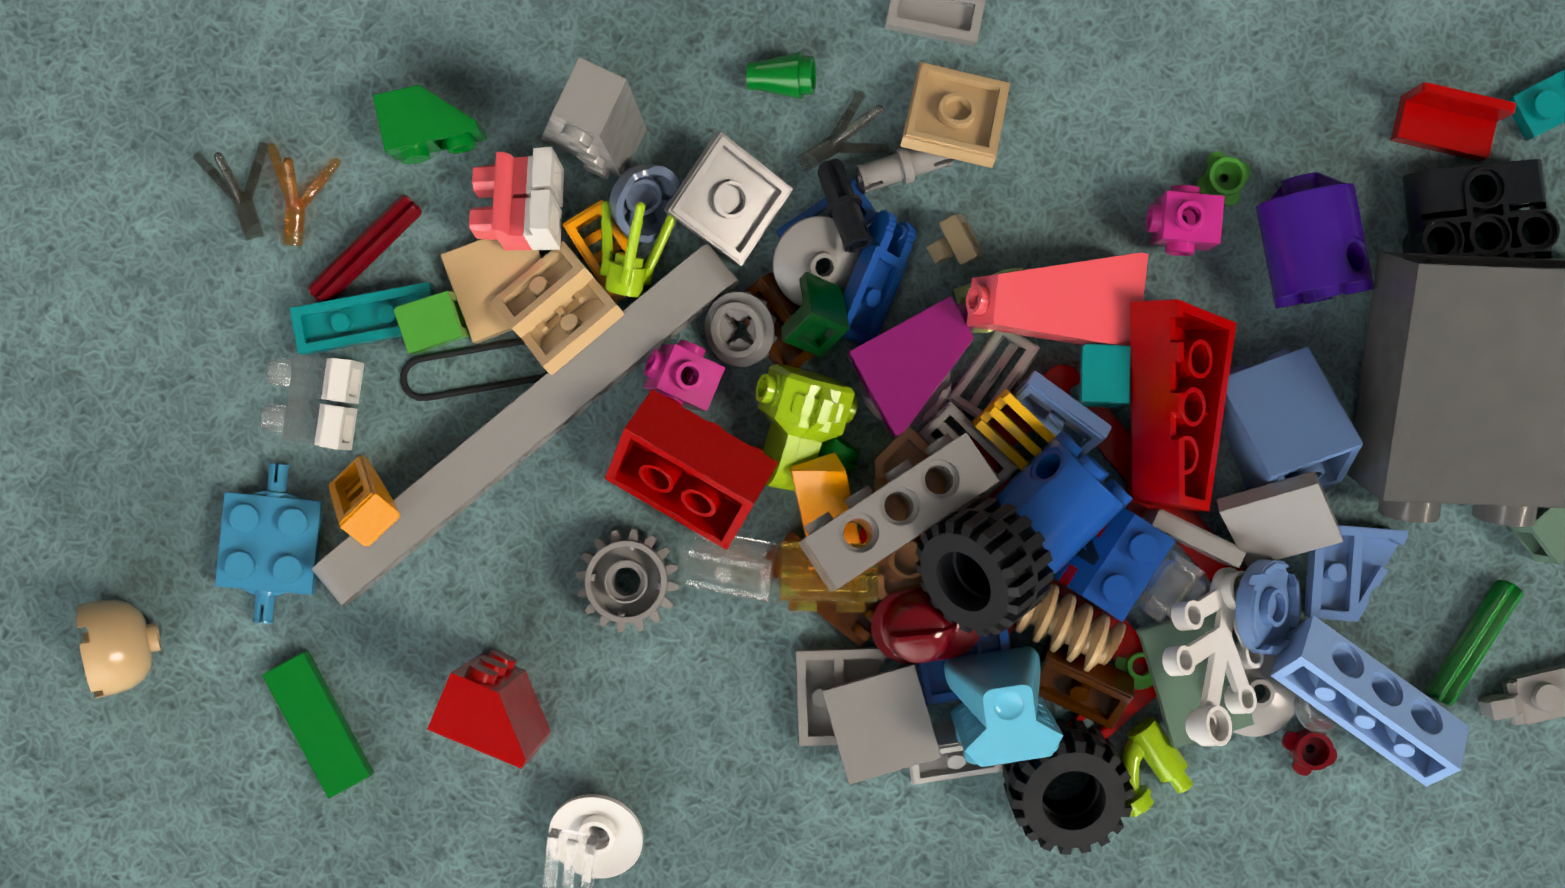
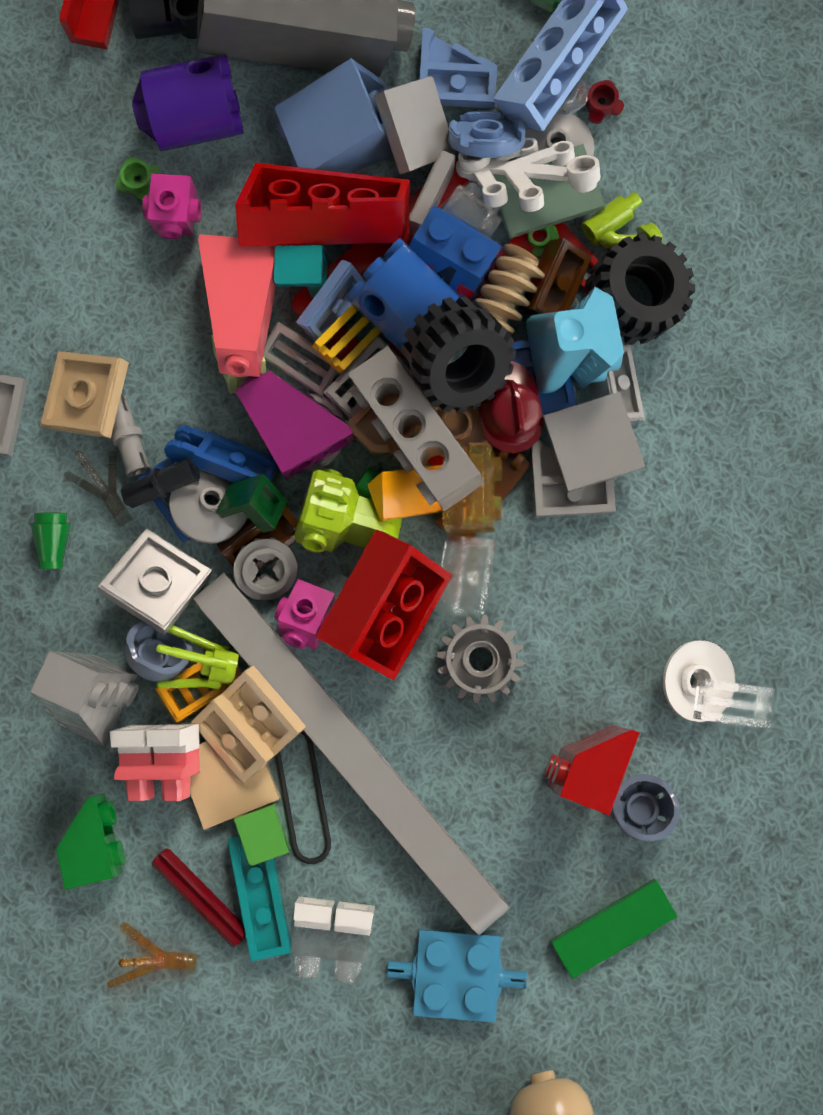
camera: 90 degrees left, 5 degrees down
(228, 183) = (155, 1008): clear smoke plant -> none
(362, 502) = (418, 890): light orange slope -> none
(451, 764) = (643, 808): none -> sand blue helmet
(958, 242) = (190, 389): dark tan tile -> none

